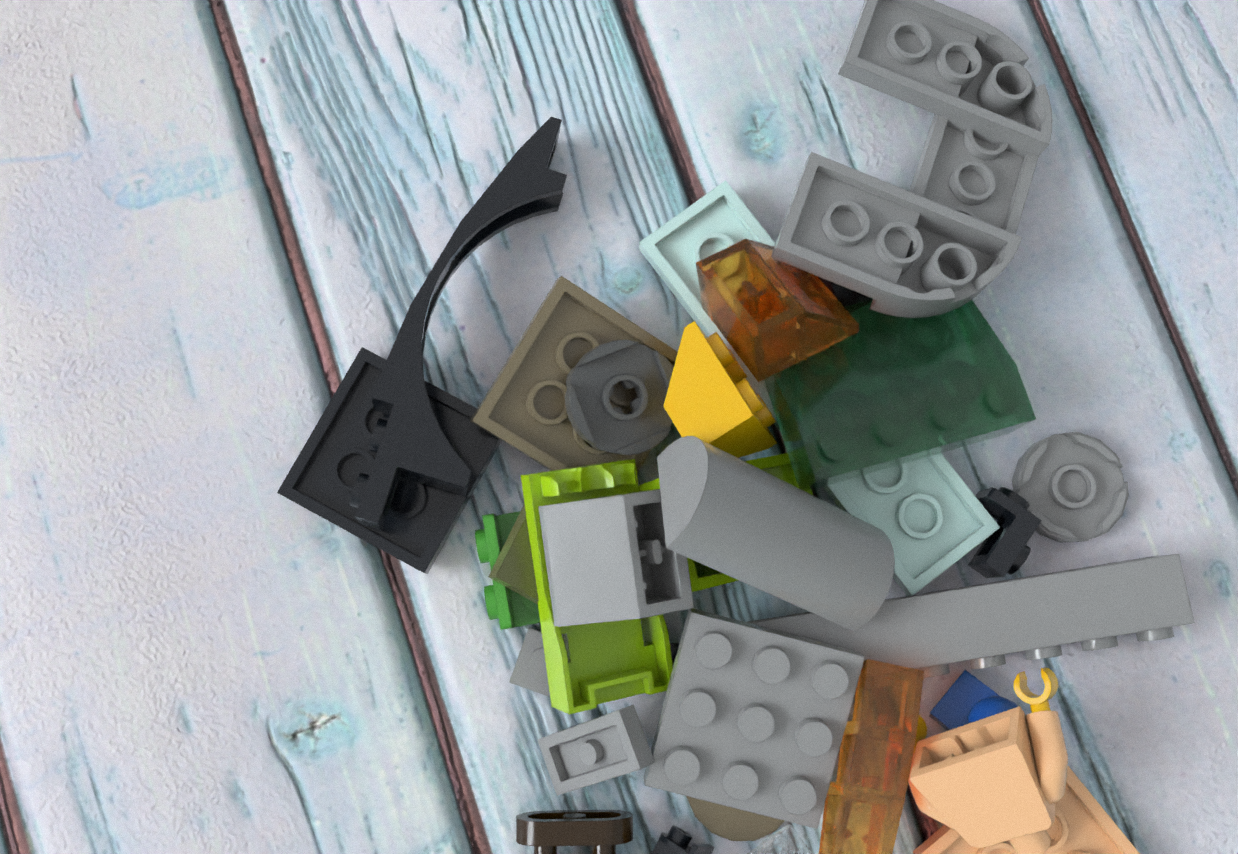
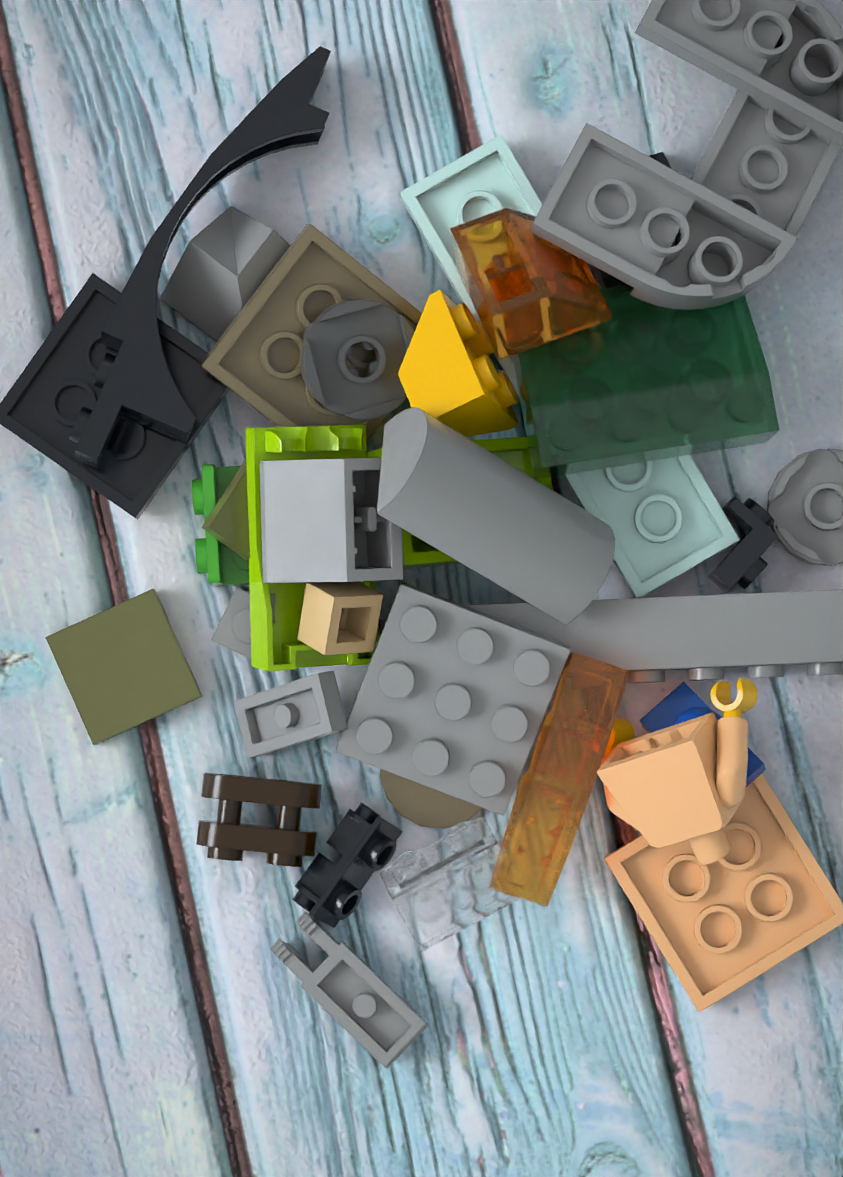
camera: 15 degrees right, 5 degrees up
(428, 718) = (124, 667): none -> olive tile
(483, 331) = (222, 270): none -> light grey slope
(634, 653) = (340, 617): none -> tan plate

